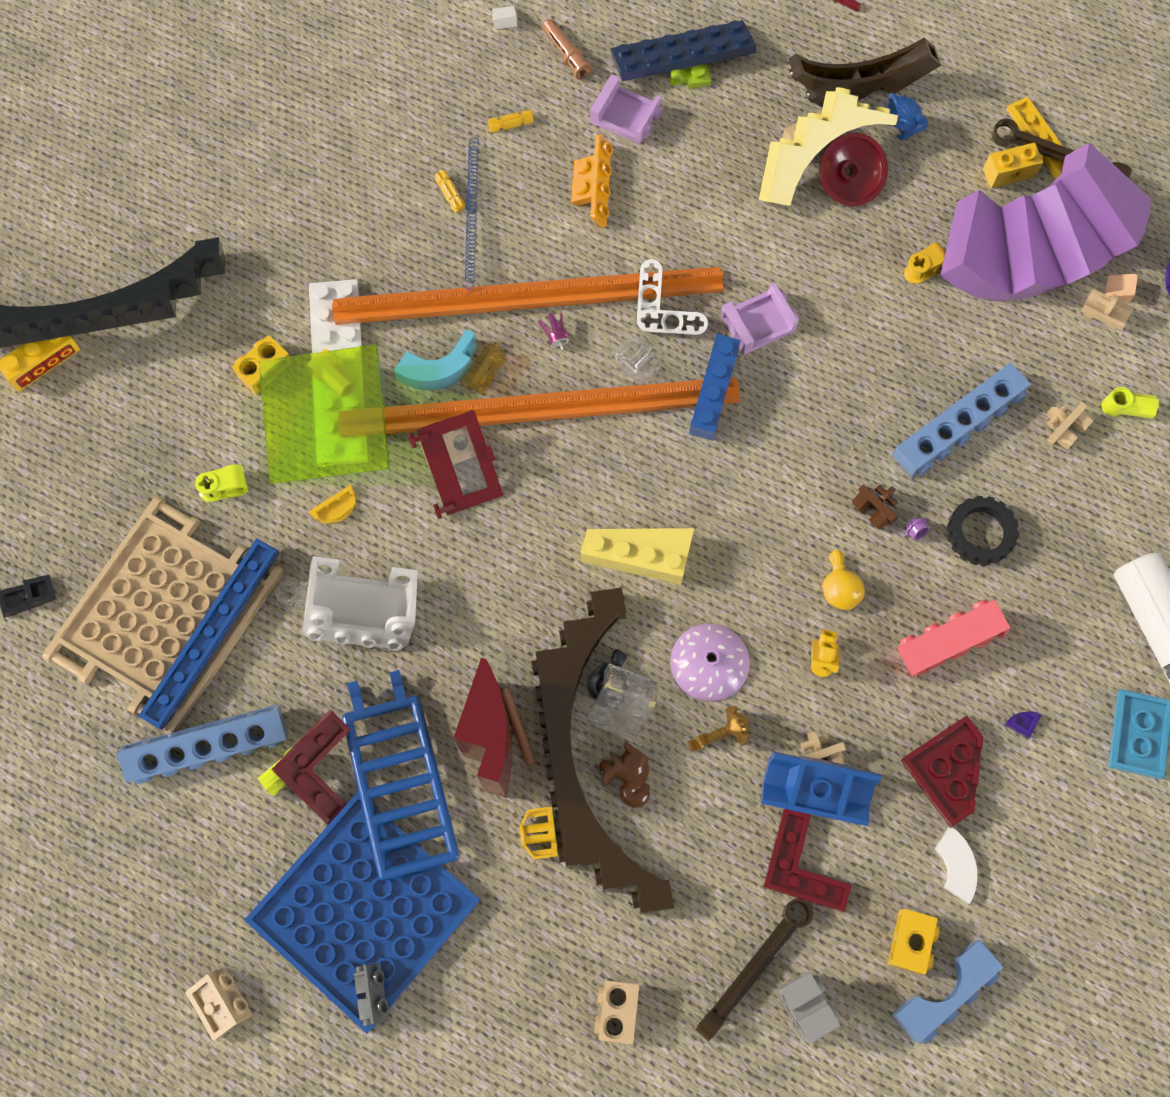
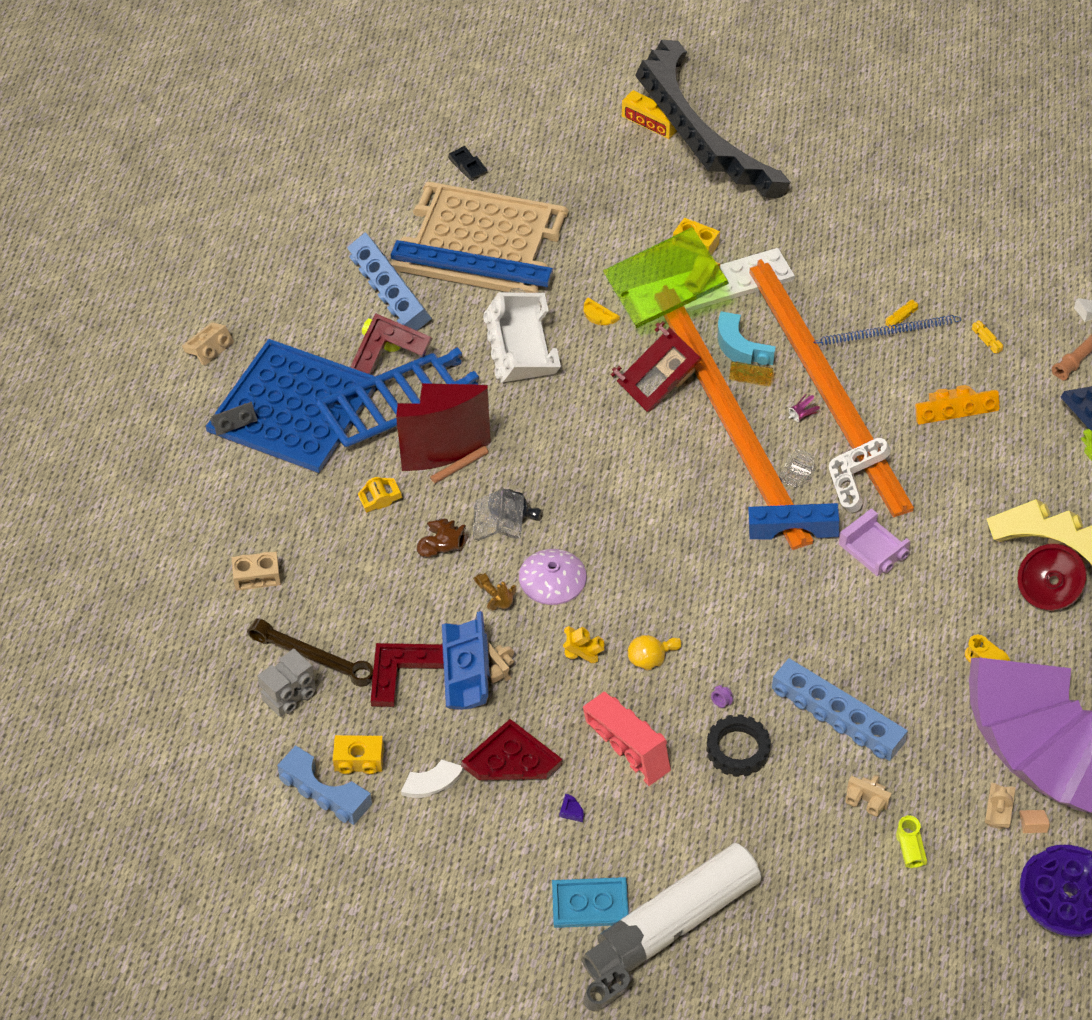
camera: 75 degrees right, 20 degrees down
(223, 483) = (591, 241): neon yellow piece -> none
(581, 833) = (388, 516): dark brown arch -> none
(625, 111) = (1035, 408): lavender panel -> none
(642, 552) = (629, 506): light yellow wedge -> none
(884, 514) = (735, 660): reddish brown hips -> none

